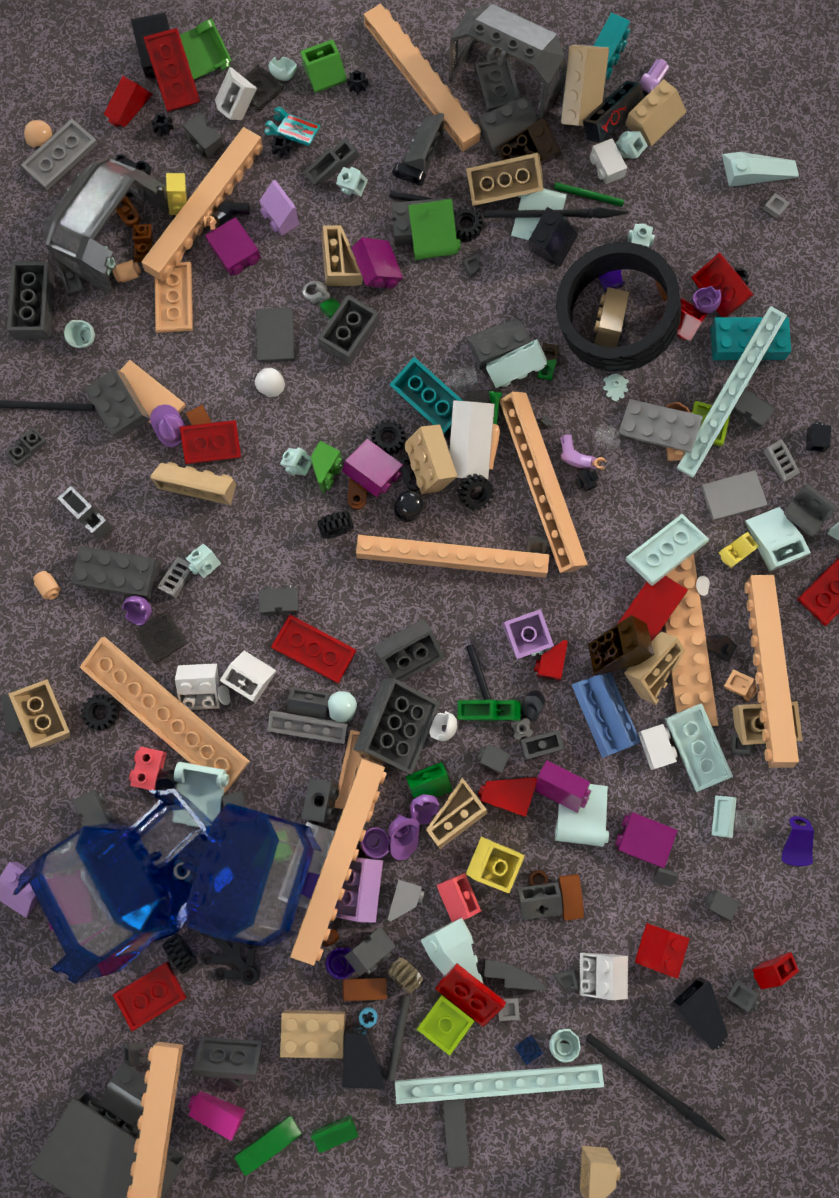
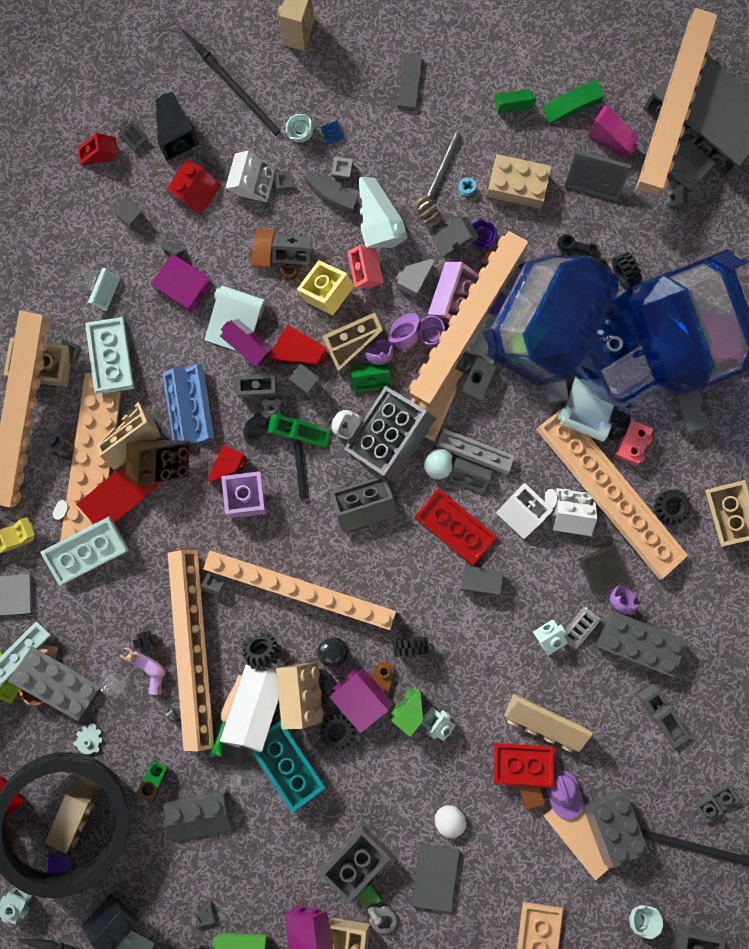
camera: 170 degrees left, 5 degrees up
(46, 585) = (711, 646): light nougat brick -> none
(149, 996) = (659, 243): red tile -> none
(361, 1061) = (479, 148): black slope -> none
(364, 989) = (465, 208): dark orange slope -> none
(445, 1025) = (400, 166): lime plate -> none
(470, 995) = (373, 183): red tile -> none
(499, 1083) = (364, 110): light aqua plate -> none
(516, 364) = (185, 783): light aqua brick -> none
(657, 746) = (147, 364): white brick -> none
(741, 685) = (51, 405): light nougat bracket -> none
(799, 845) = (41, 252): dark purple piece -> none

